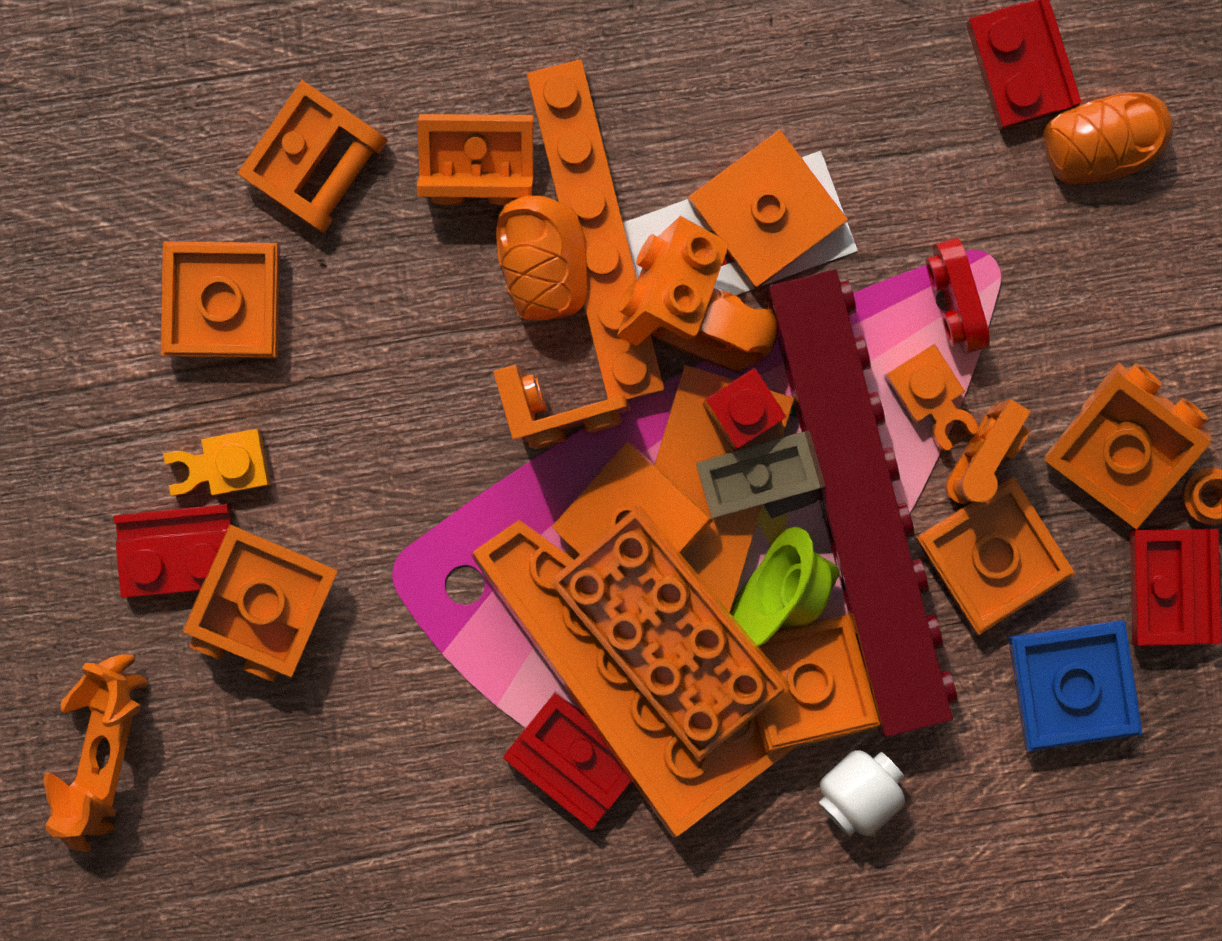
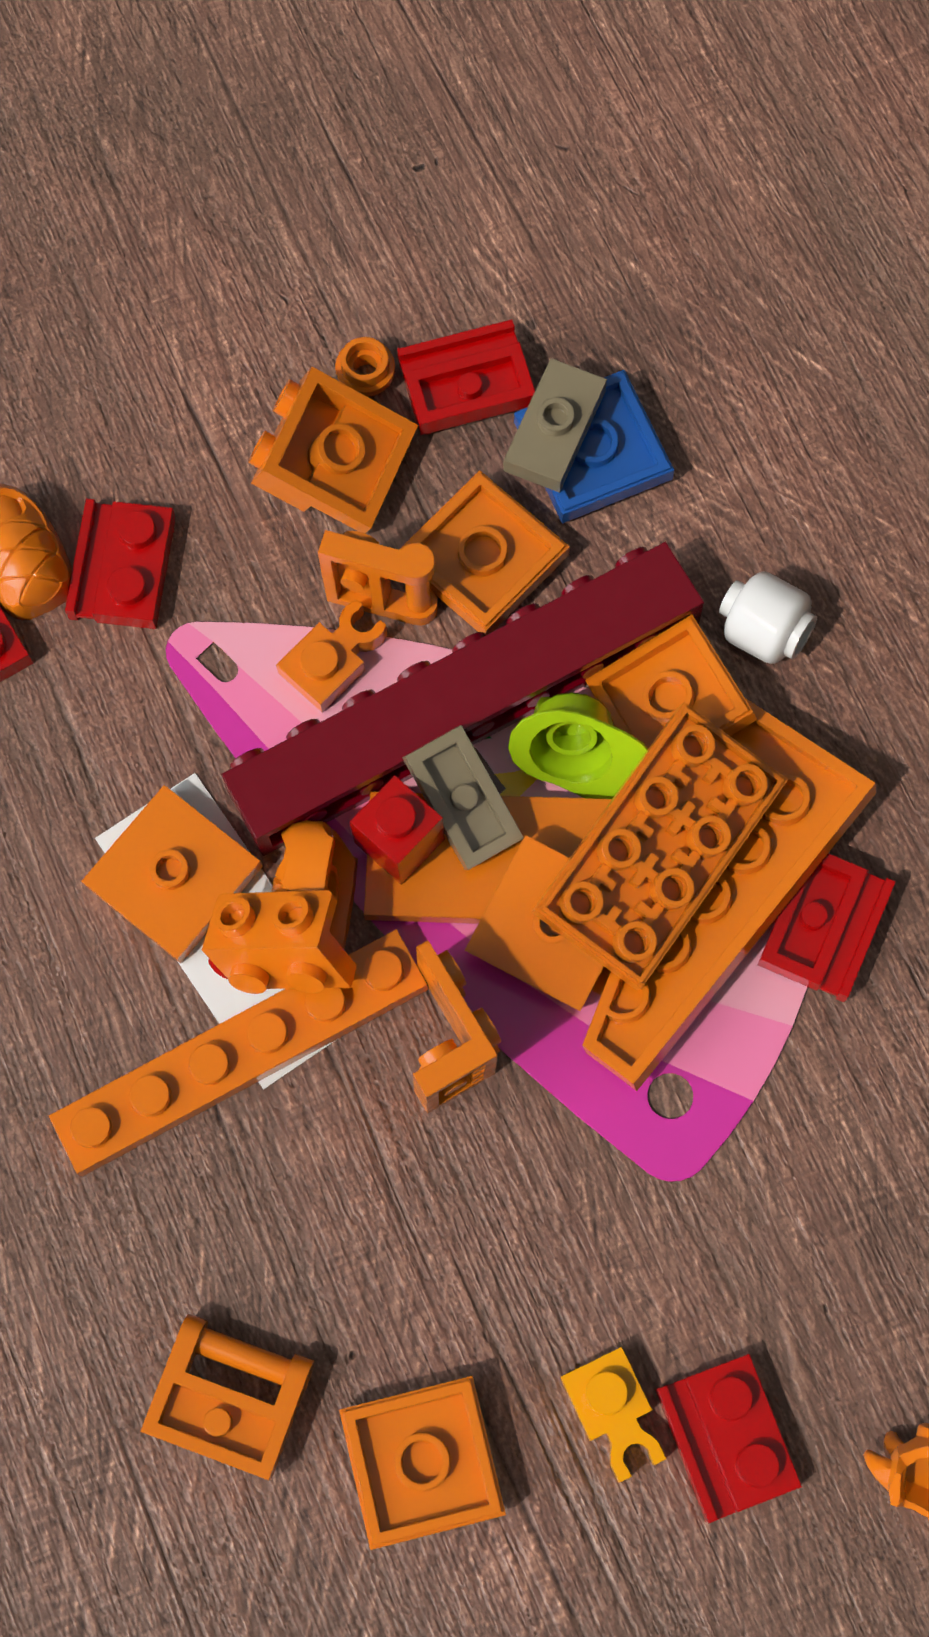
camera: 105 degrees left, 15 degrees down
(258, 604) = (762, 1314): orange plate -> none
(475, 157) = (187, 1204): orange bracket -> none
(542, 257) = (283, 1097): orange piece -> none
(952, 274) = (201, 660): red plate -> none
(1073, 228) = (120, 563): none -> red plate
(1099, 653) = (554, 425): none -> dark tan plate

